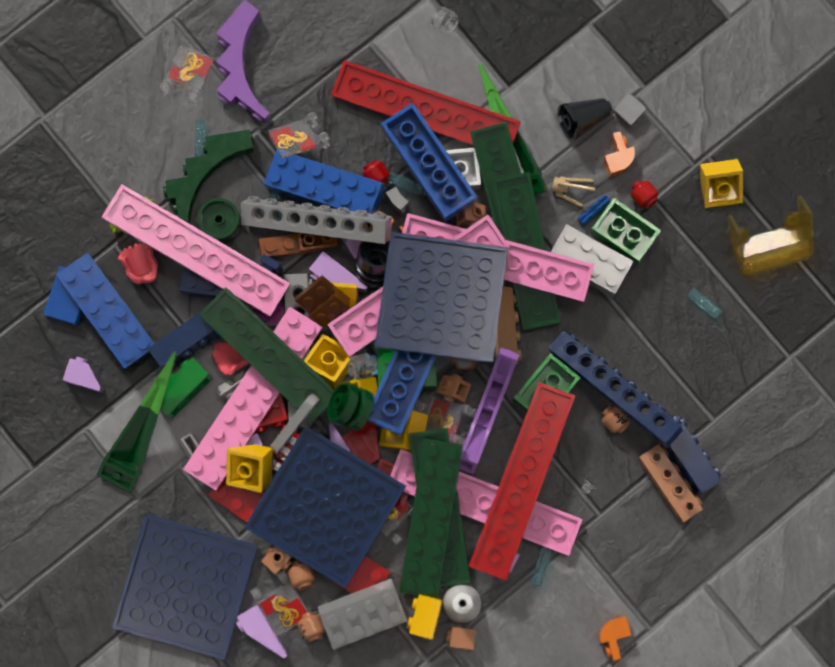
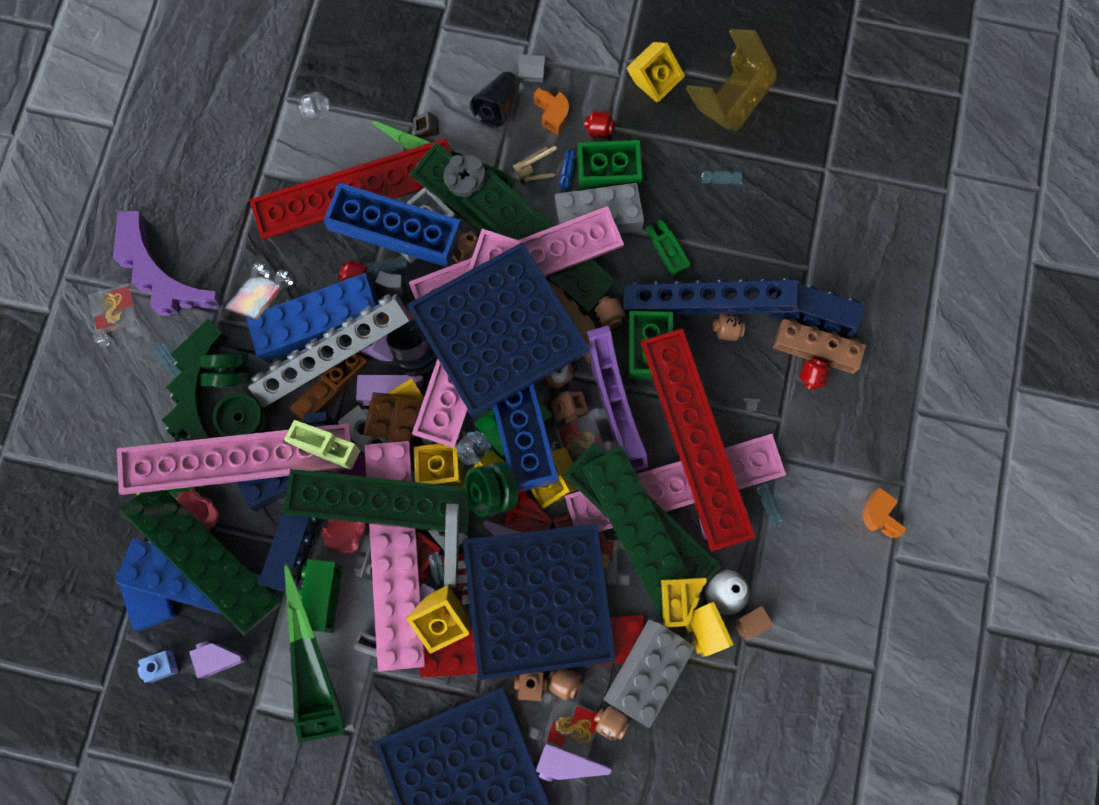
camera: 40 degrees left, 5 degrees down
(41, 351) = (157, 666): none -> light blue brick
(122, 301) = (201, 558): none -> dark green plate
(234, 177) = (224, 369): none -> dark green wheel
(260, 286) = (322, 444): none -> yellowish green slope
(274, 431) = (437, 569): none -> clear light blue axle
(421, 581) = (680, 599): none -> yellow wing
(510, 153) = (460, 165): none -> dark grey plate
(516, 96) = (426, 125): none -> dark brown slope
(537, 342) = (609, 312): none -> nougat head
(619, 328) = (668, 249): none -> green hinge
(649, 500) = (815, 373): none -> red head

